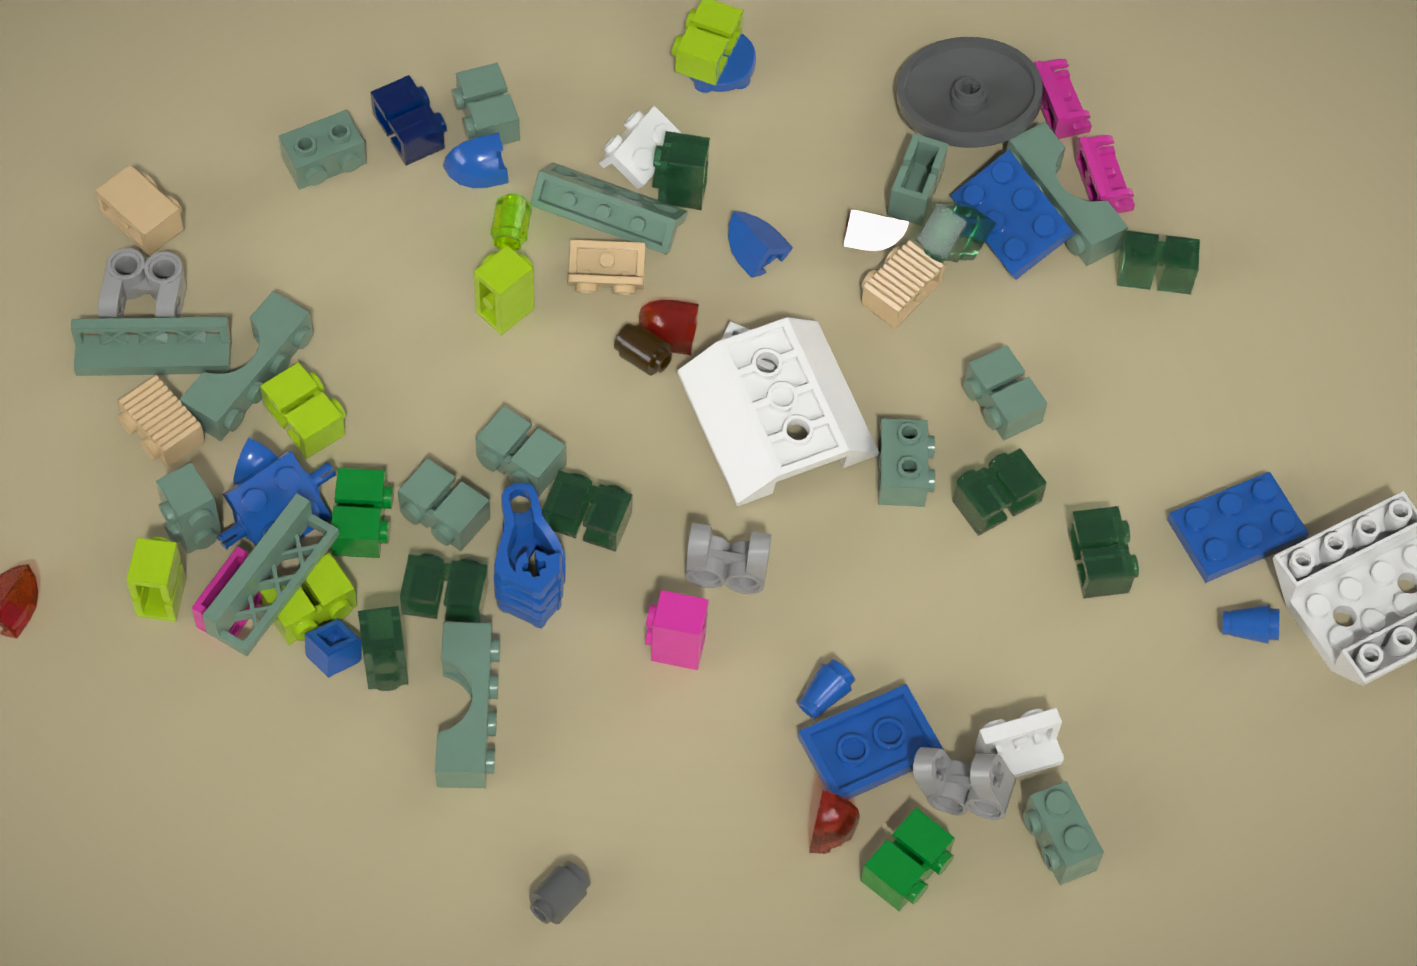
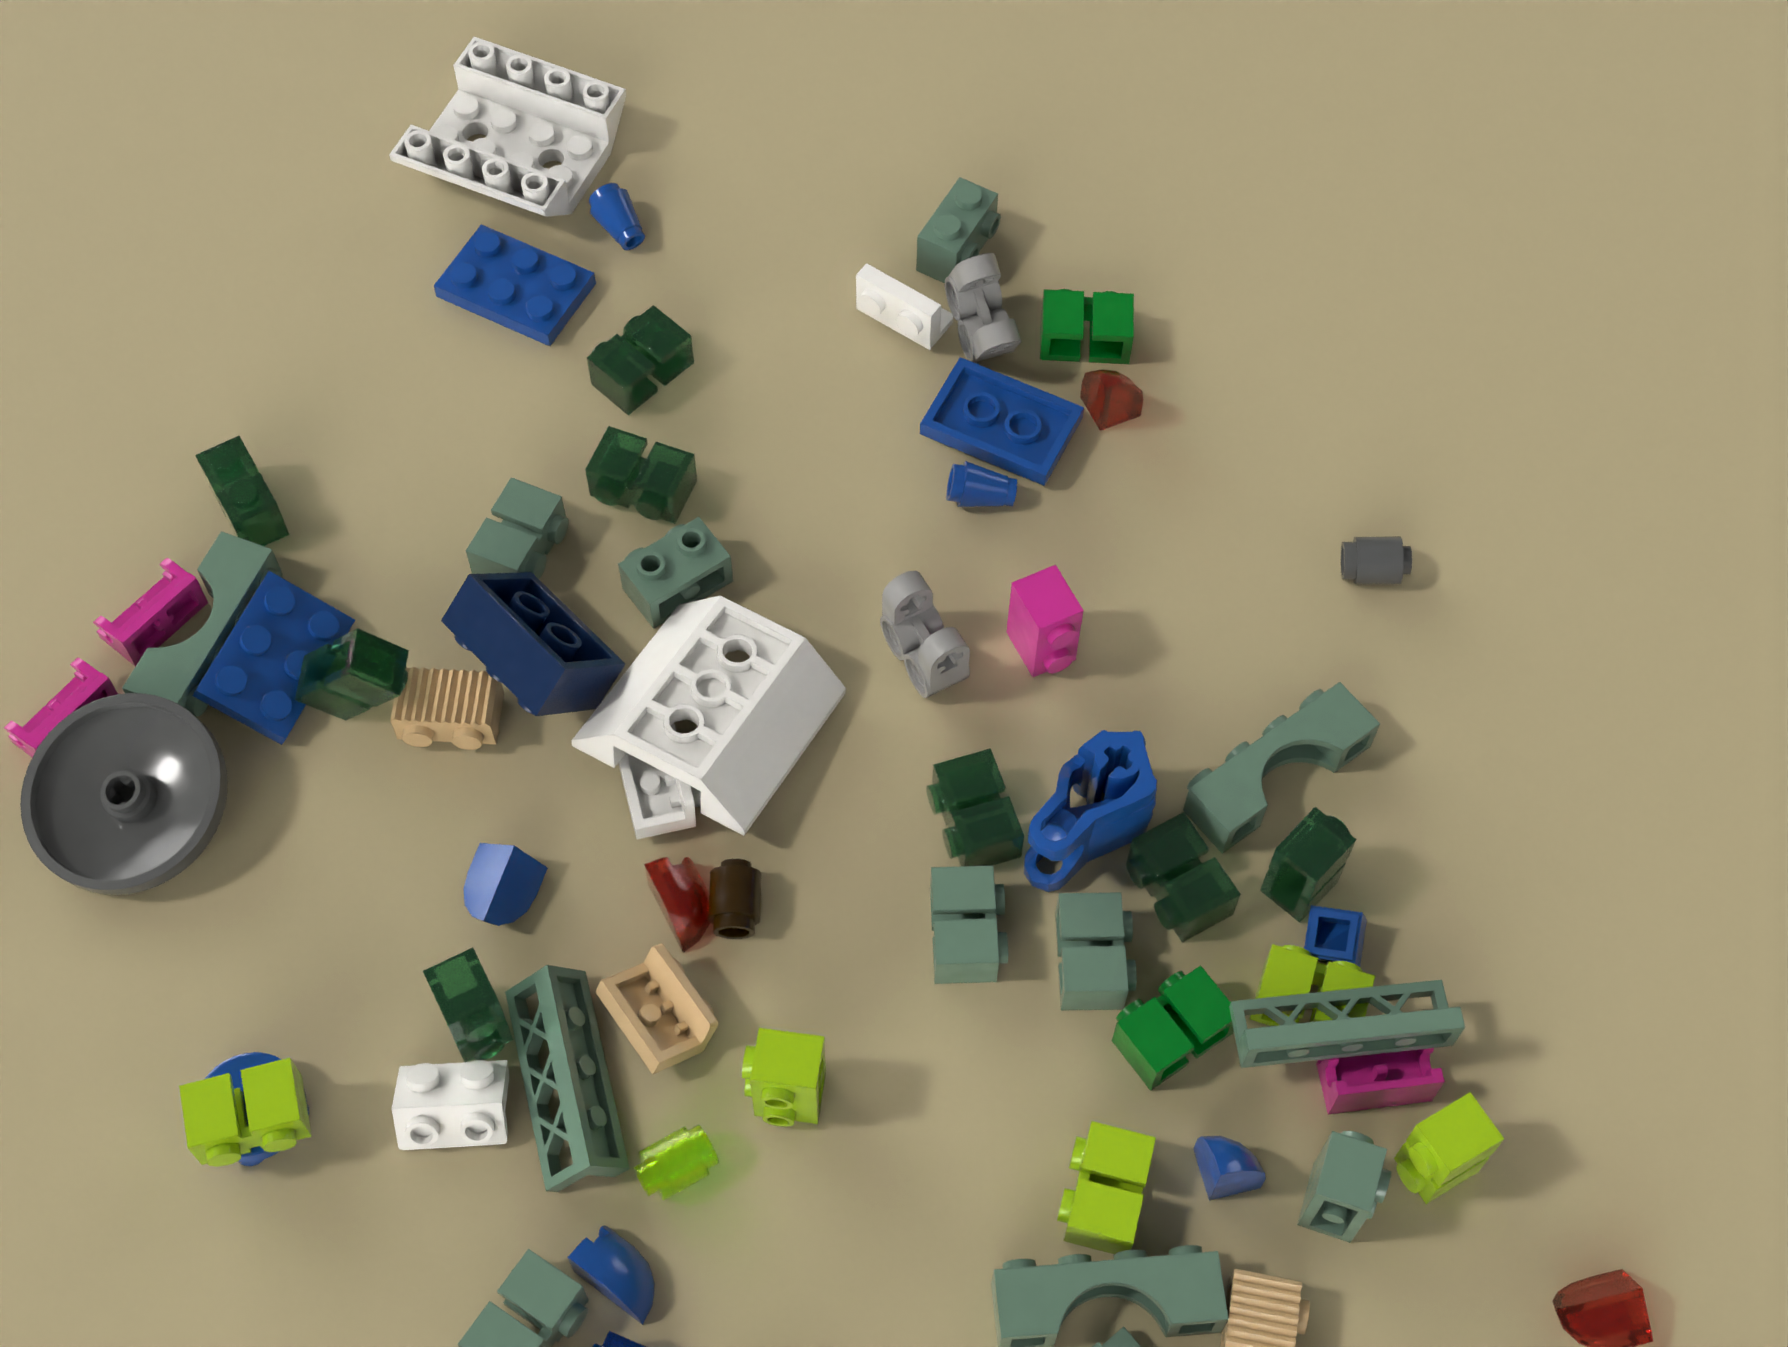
camera: 125 degrees left, 0 degrees up
(267, 492) = (1248, 1107): blue plate -> none
(872, 231) = (392, 783): brick -> none
(902, 336) = (532, 643): none -> dark blue brick
(917, 179) = (277, 784): sand green piece -> none

